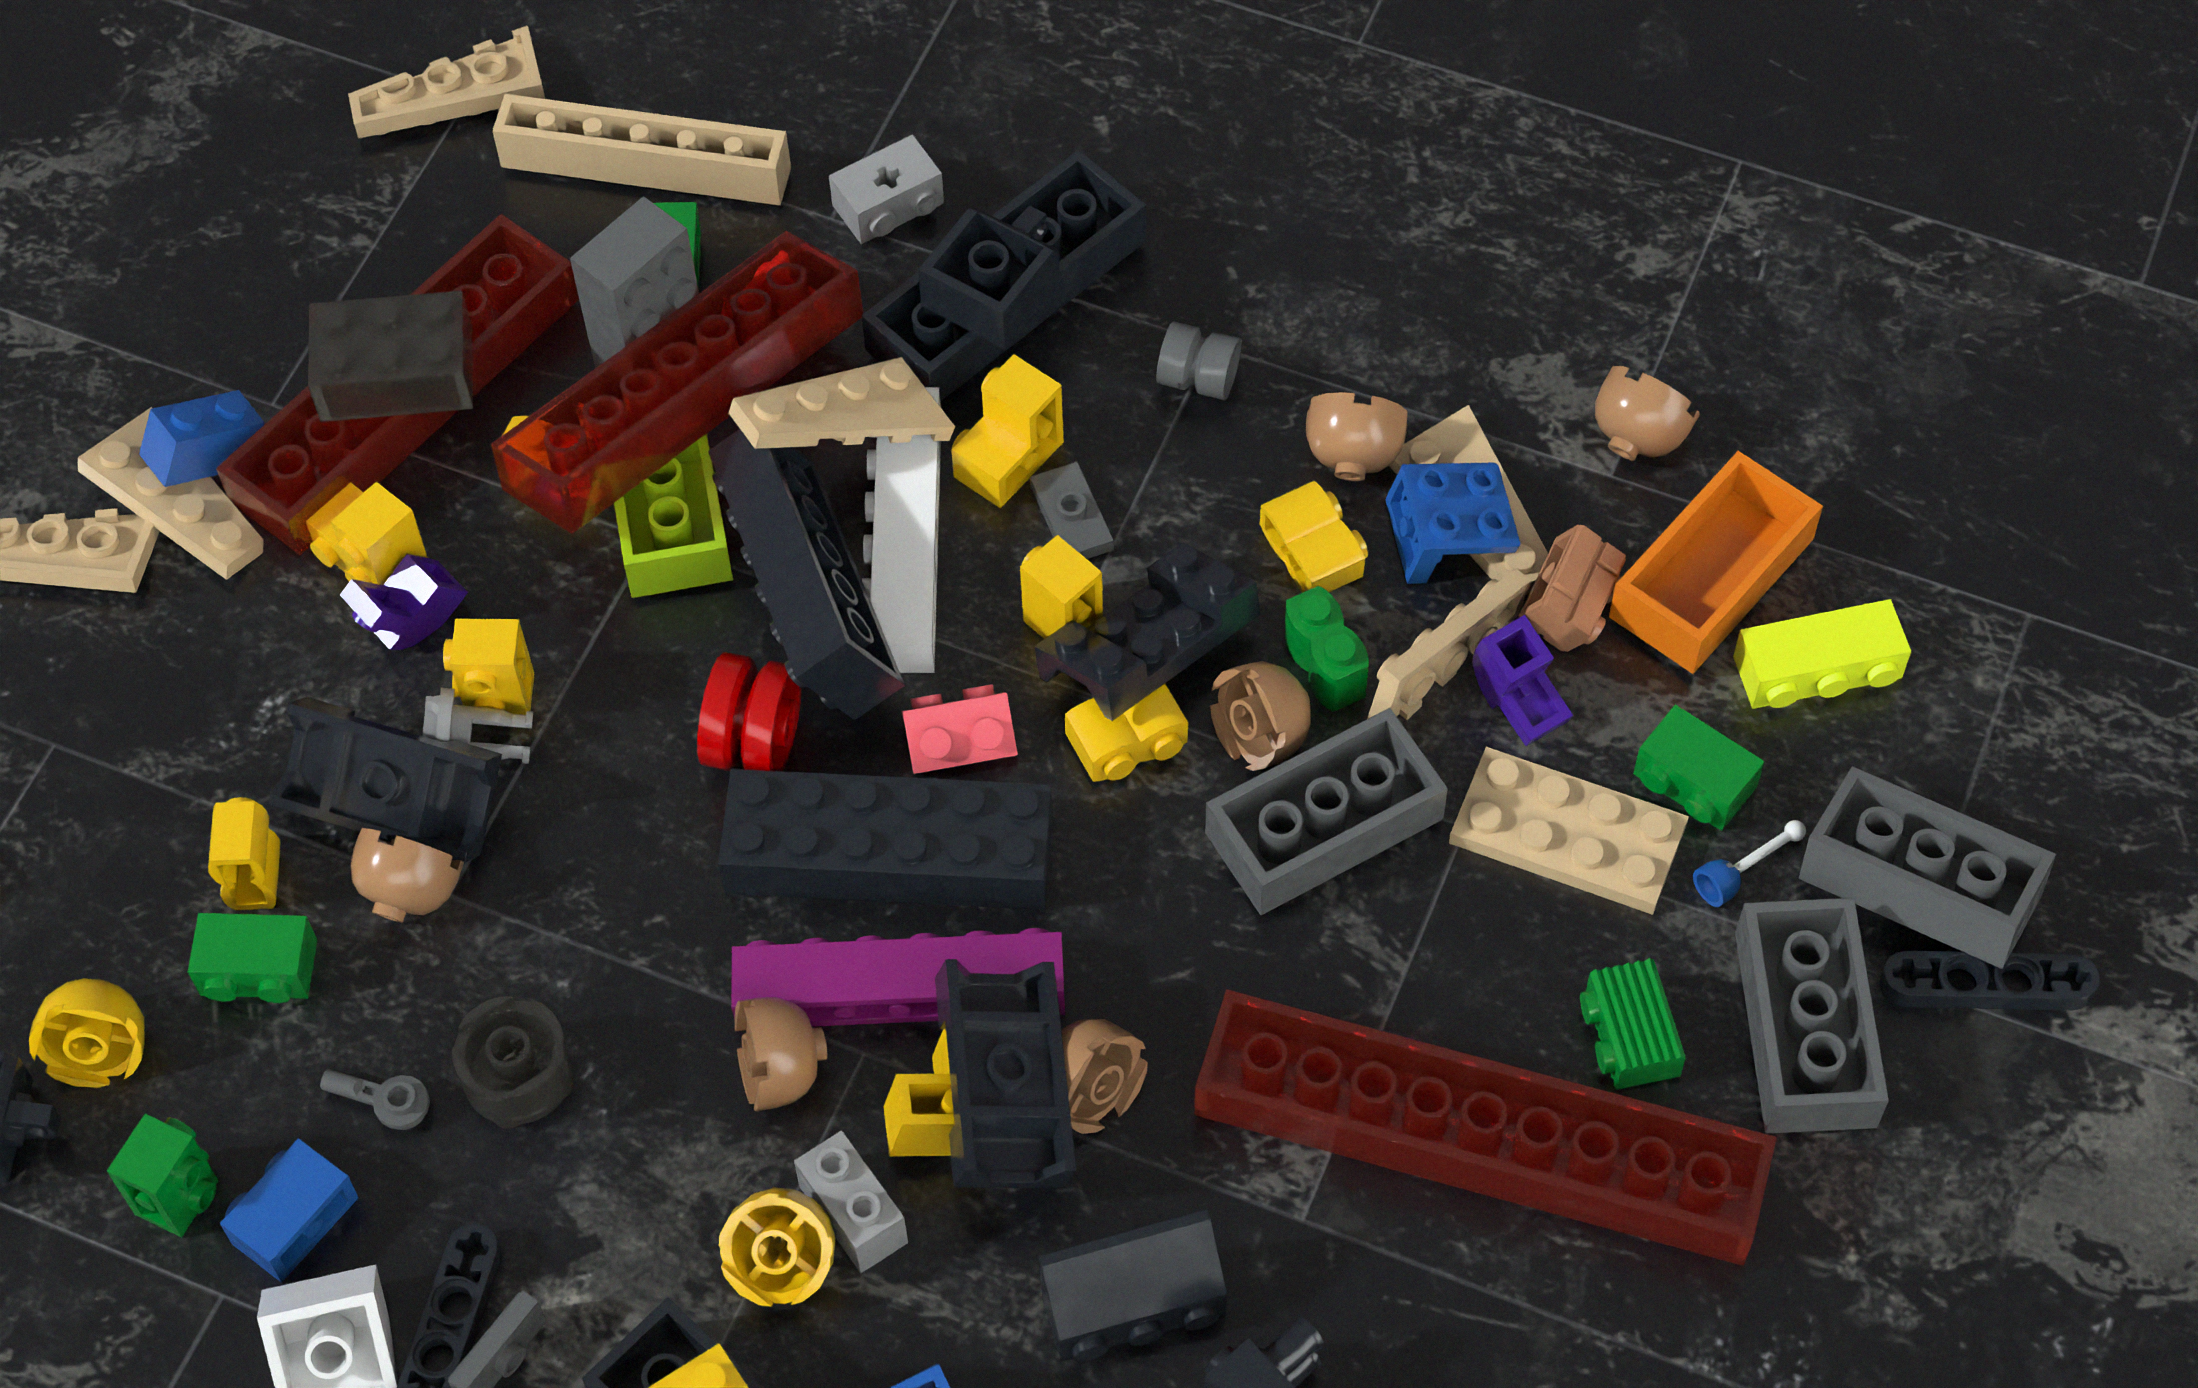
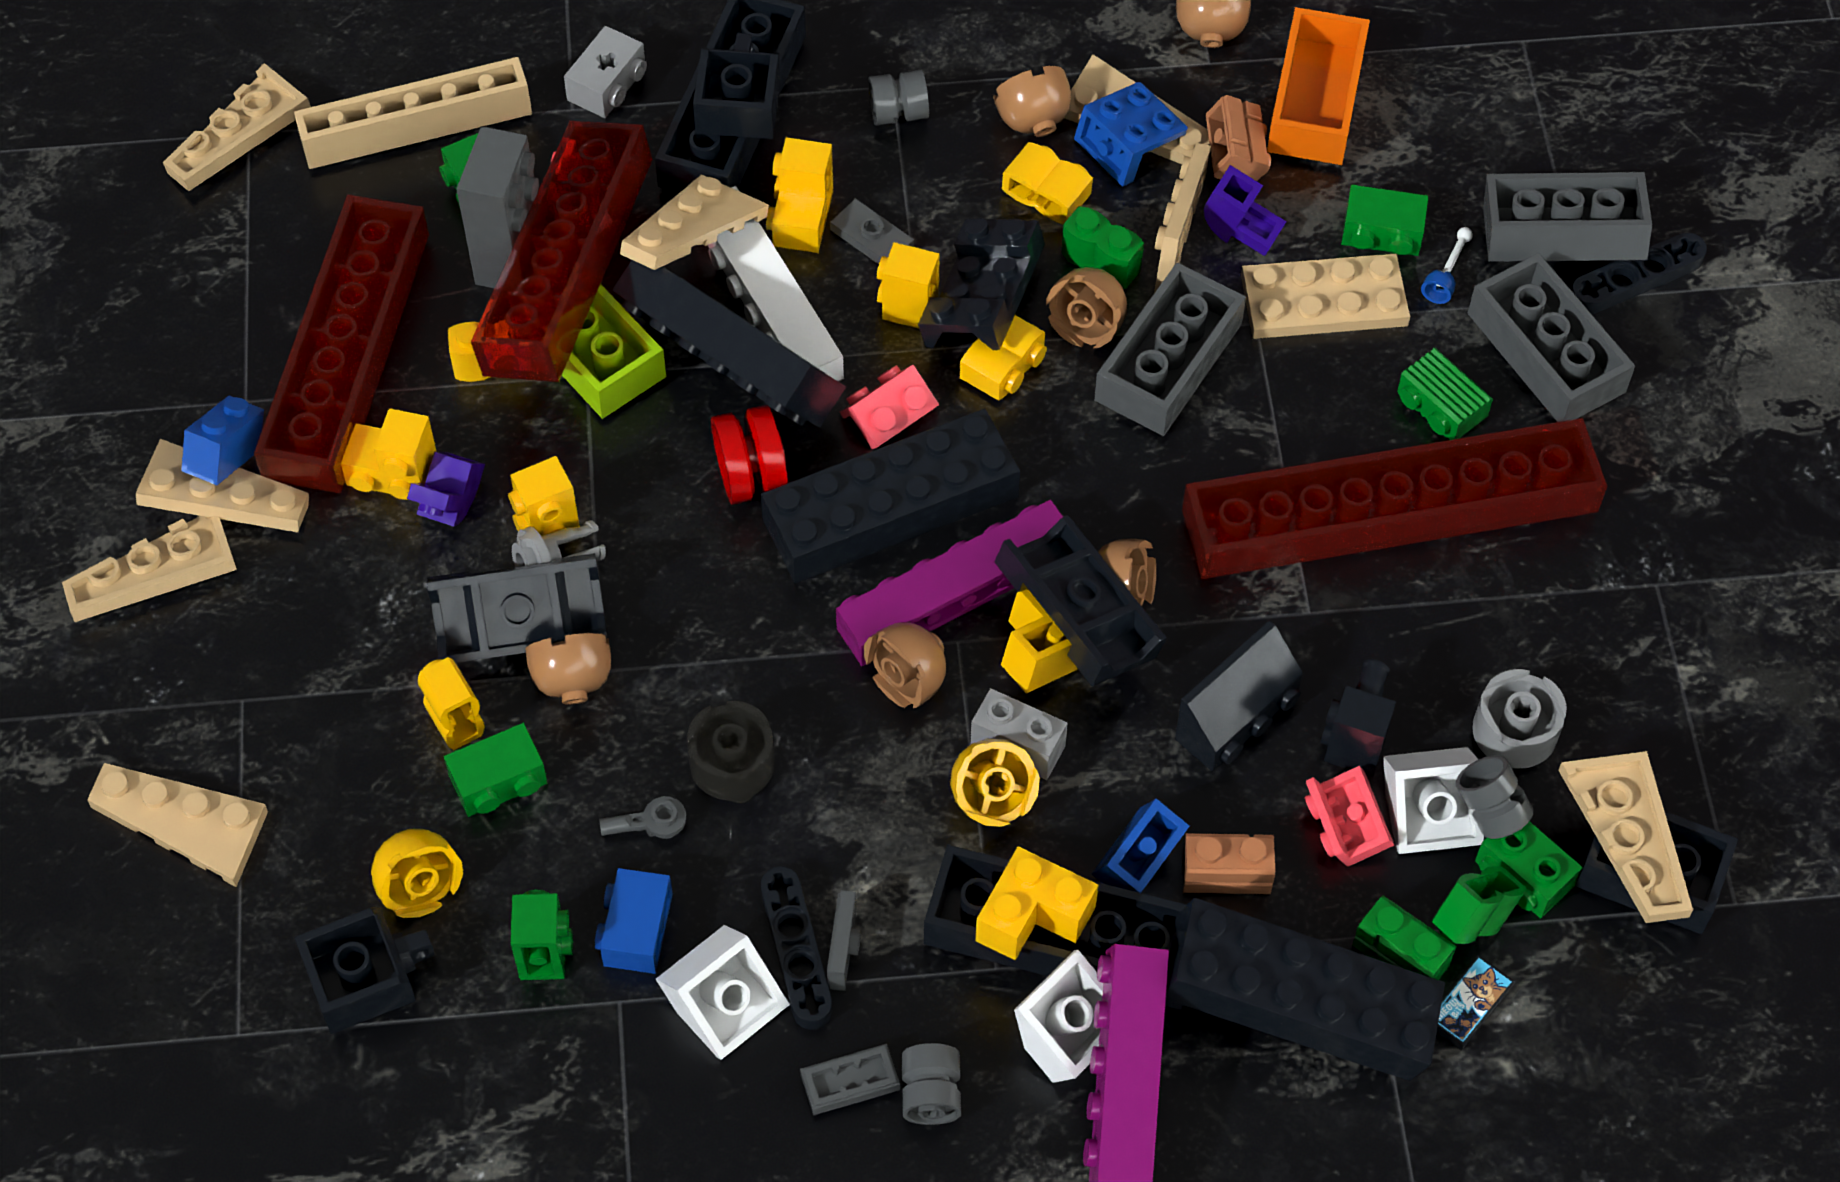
camera: 30 degrees left, 0 degrees up
(390, 356) = (341, 319): clear smoke brick -> none
(1821, 654) = (1416, 117): neon yellow brick -> none

